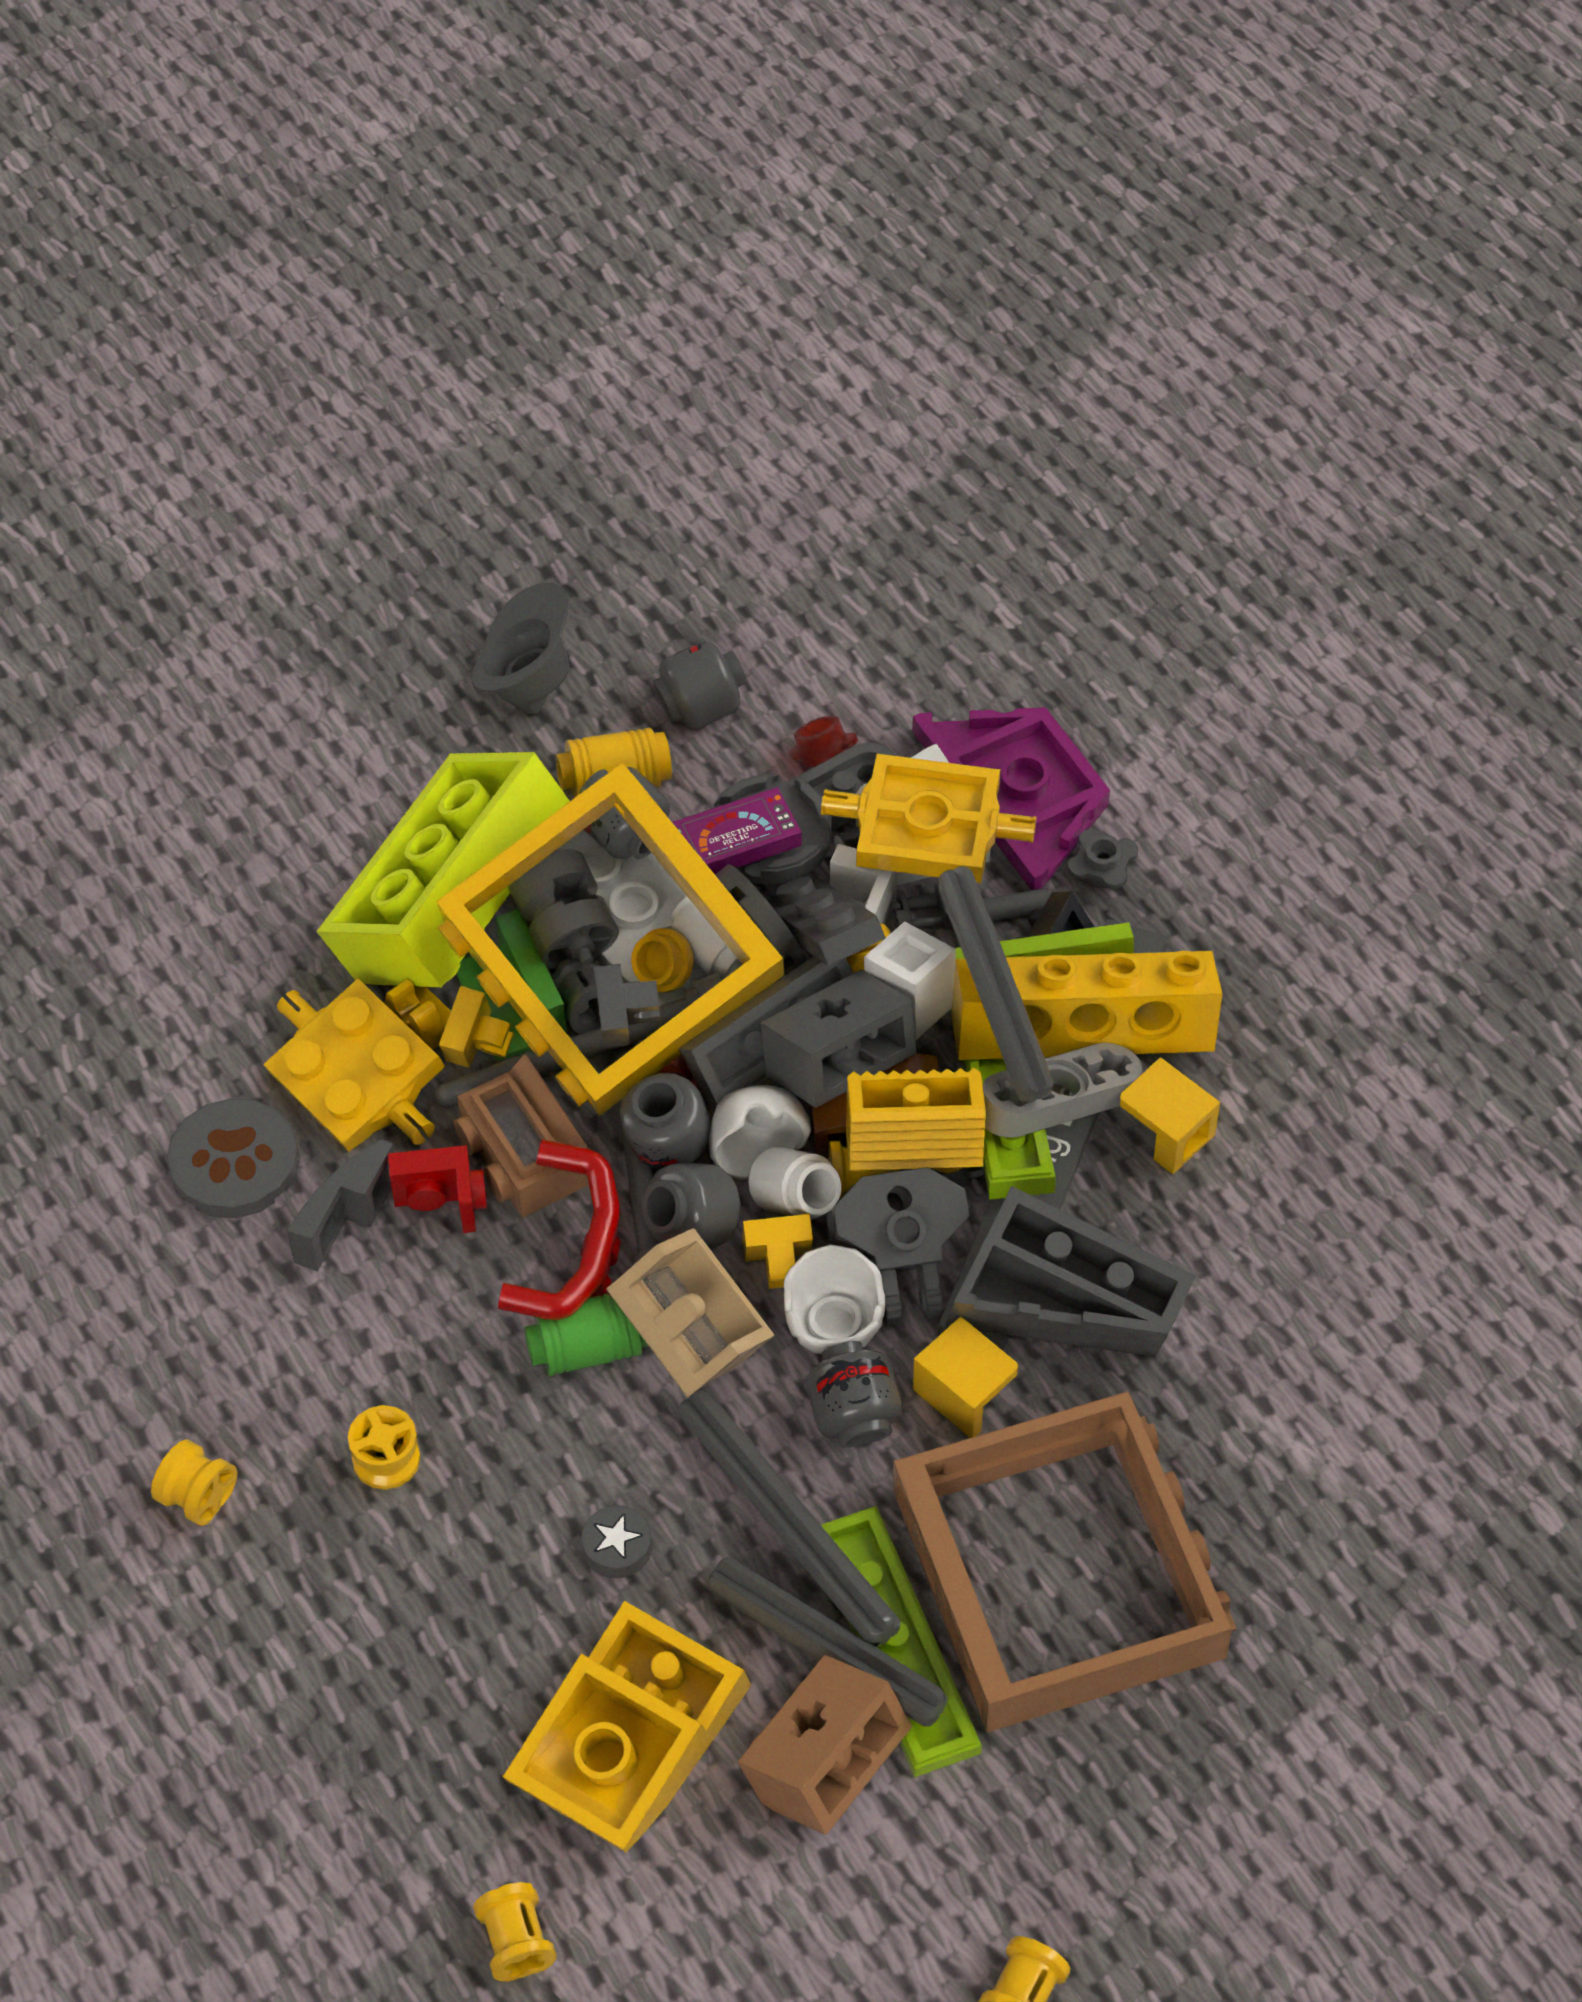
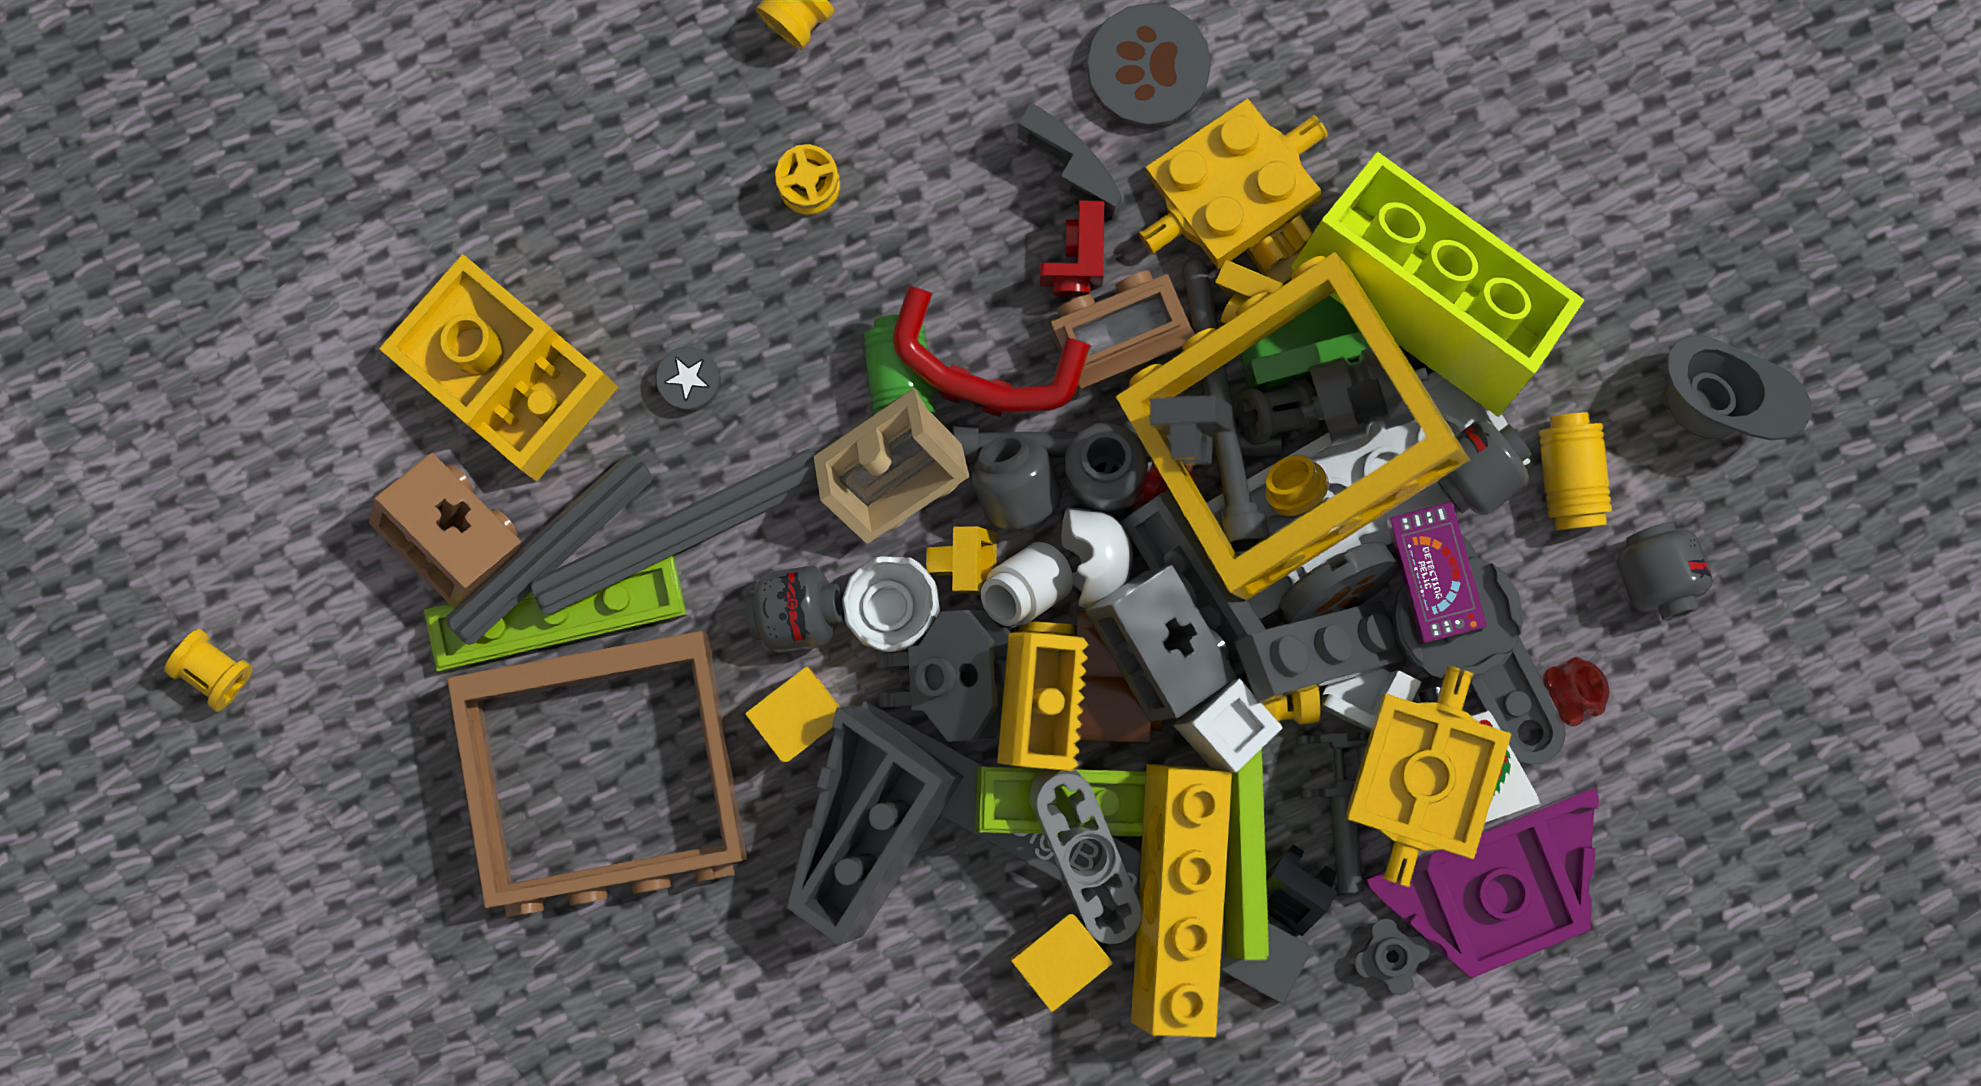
camera: 95 degrees right, 30 degrees up
(514, 1931) = (327, 252): yellow bush -> none
(995, 985) = (1176, 802): dark grey axle -> none

